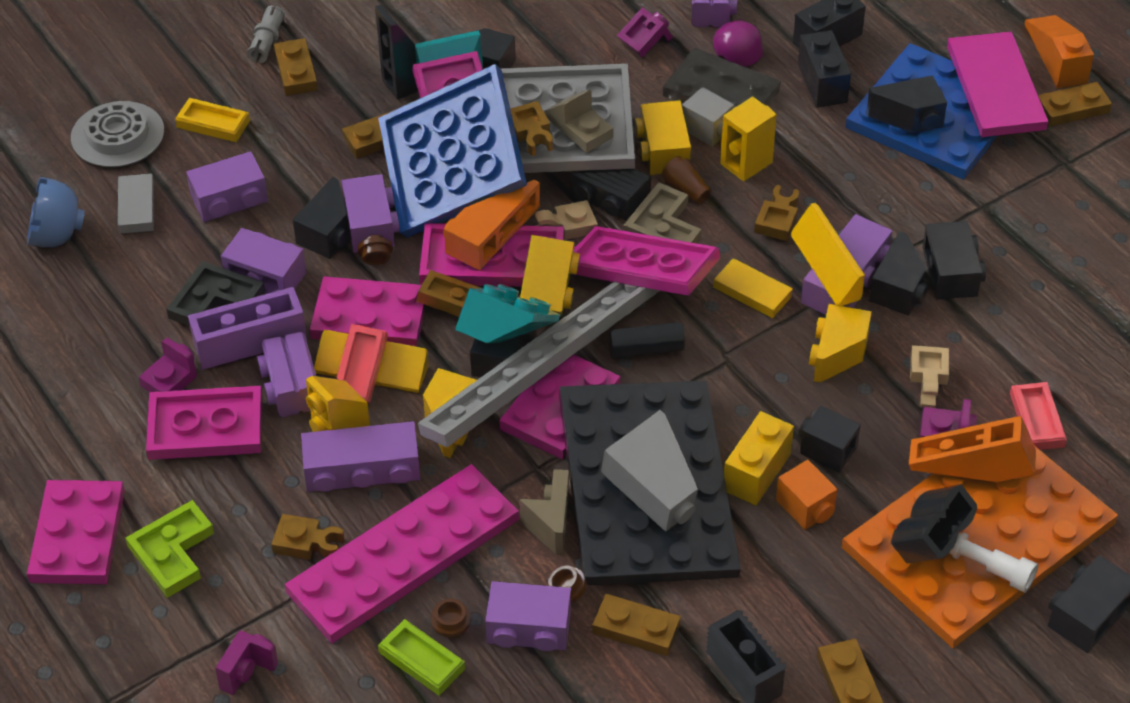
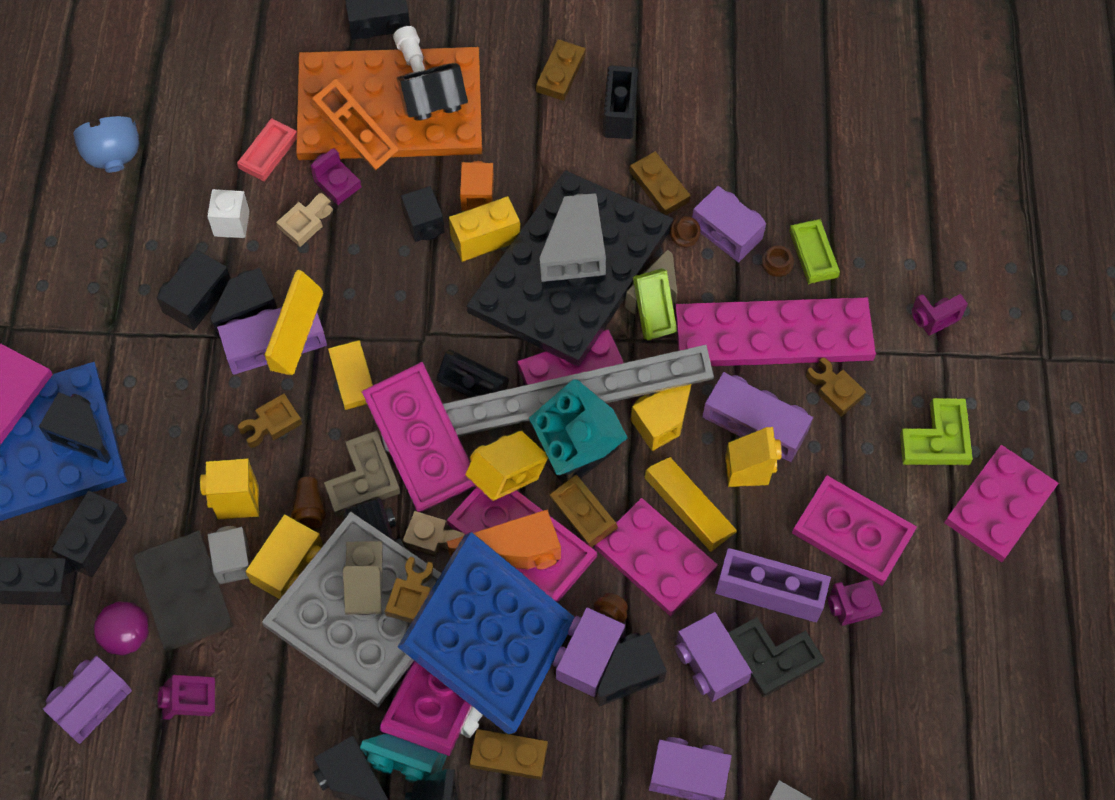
camera: 145 degrees left, 15 degrees up
(288, 366) = (763, 523): medium lavender brick -> none
(362, 359) = (703, 496): coral tile -> none
(533, 480) = (655, 304): none -> lime tile
(842, 341) = (344, 278): yellow slope -> none
(996, 328) = (228, 213): none -> white brick

